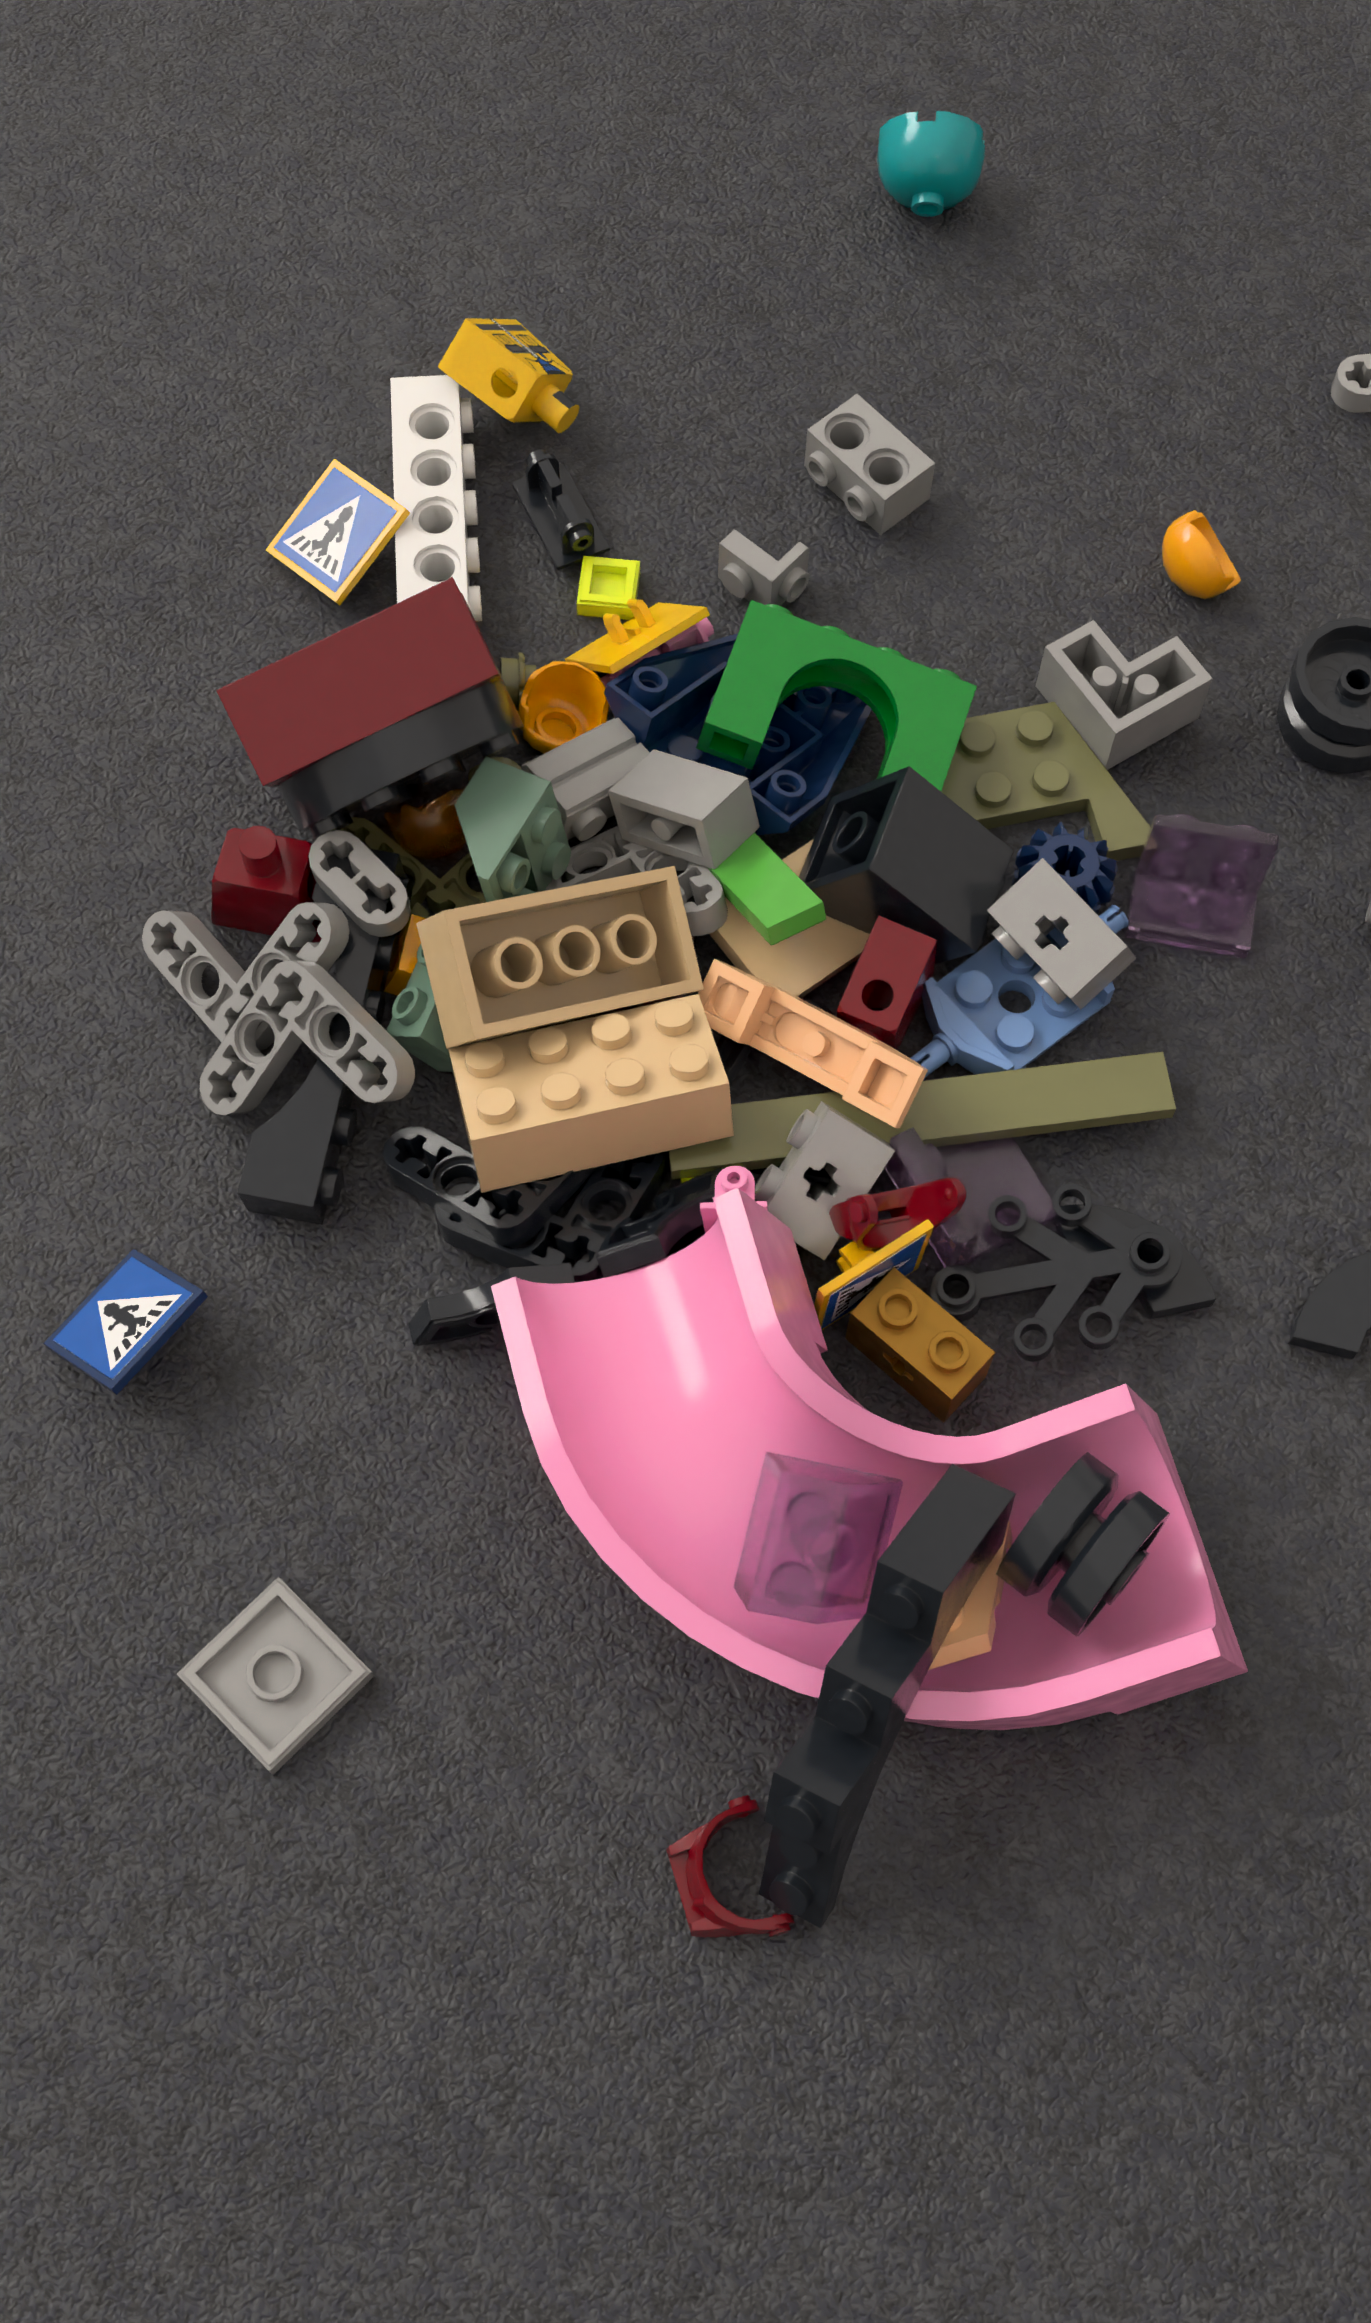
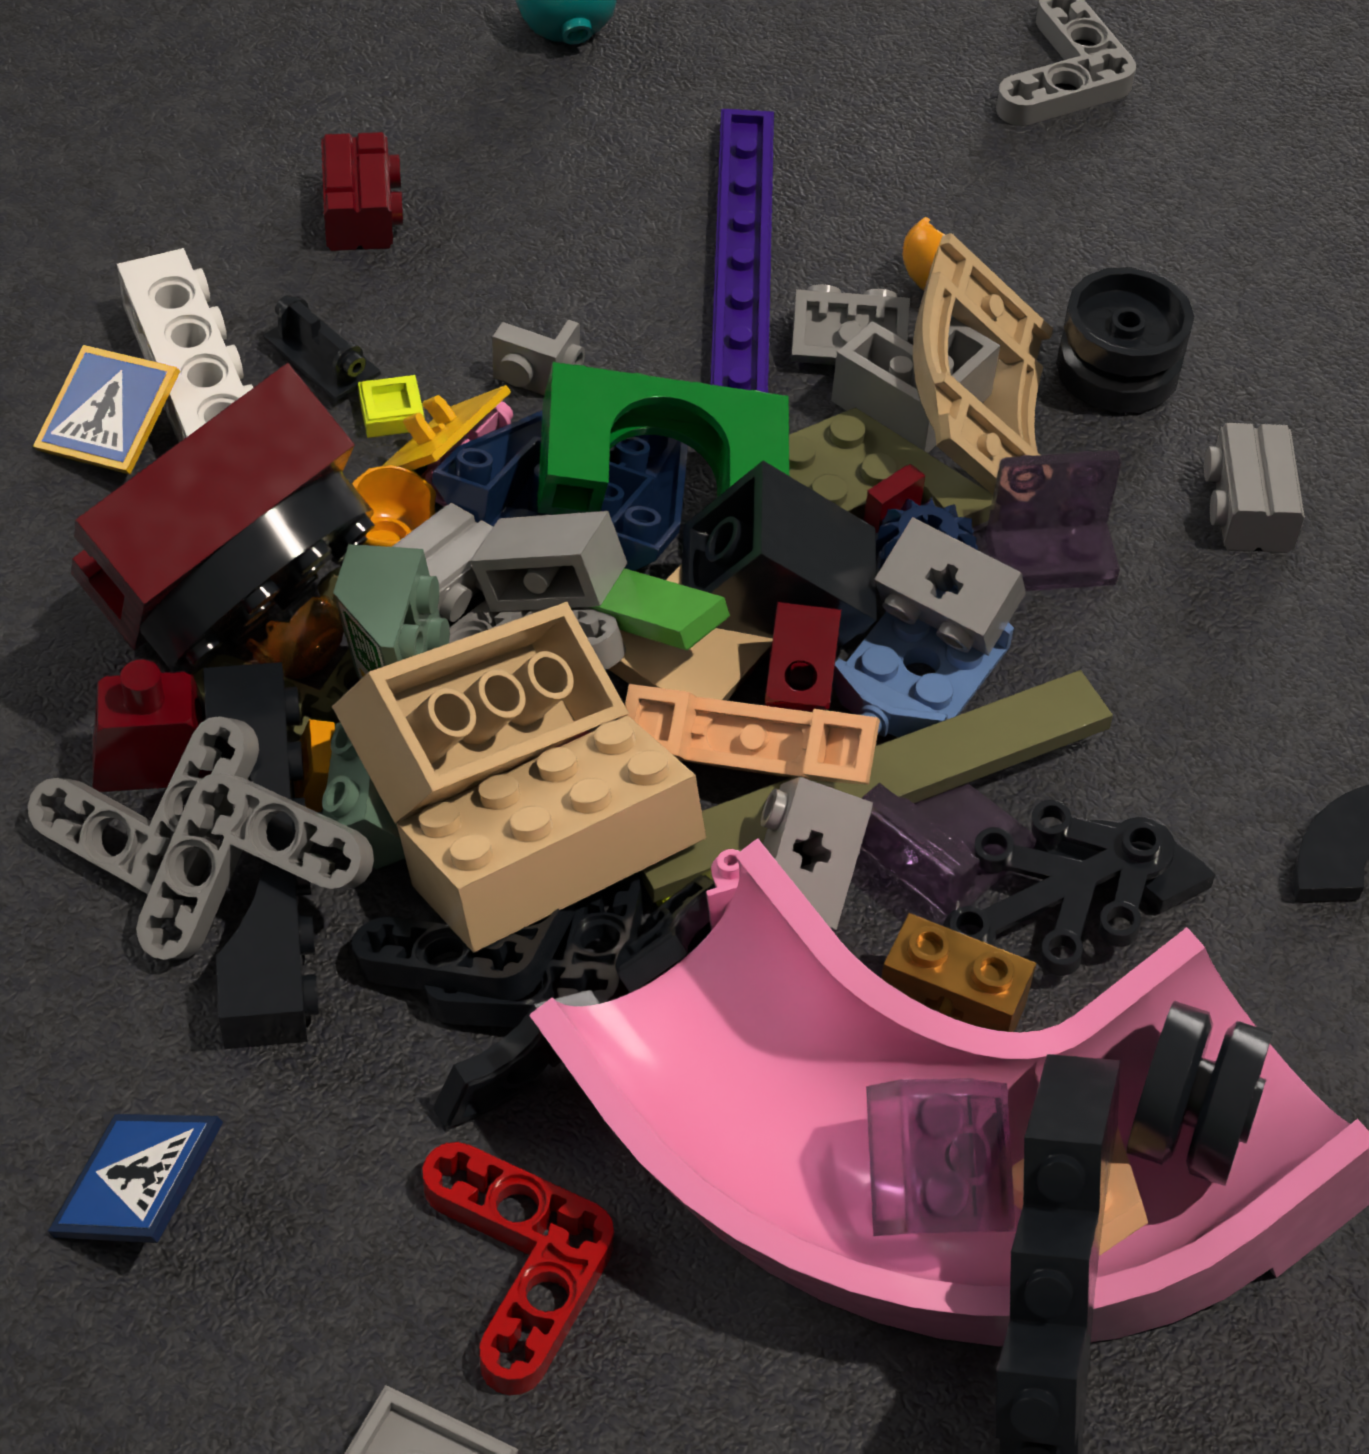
camera: 20 degrees left, 15 degrees down
(369, 873) = (256, 689): light grey beam -> none
(458, 1501) = (549, 1258): none -> red beam
(511, 372) = (236, 237): yellow torso -> none
(651, 343) = (358, 192): none -> dark red brick
(866, 1269) = (880, 921): piece -> none
(868, 464) = (604, 248): light grey brick -> none
(908, 1207) = (904, 856): dark red helmet -> none
(1005, 504) = (743, 251): none -> dark purple tile
(1048, 811) = (892, 494): none -> dark red tile
(1064, 600) = (830, 319): none -> light grey bracket
(1237, 659) = (966, 429): none -> tan wedge

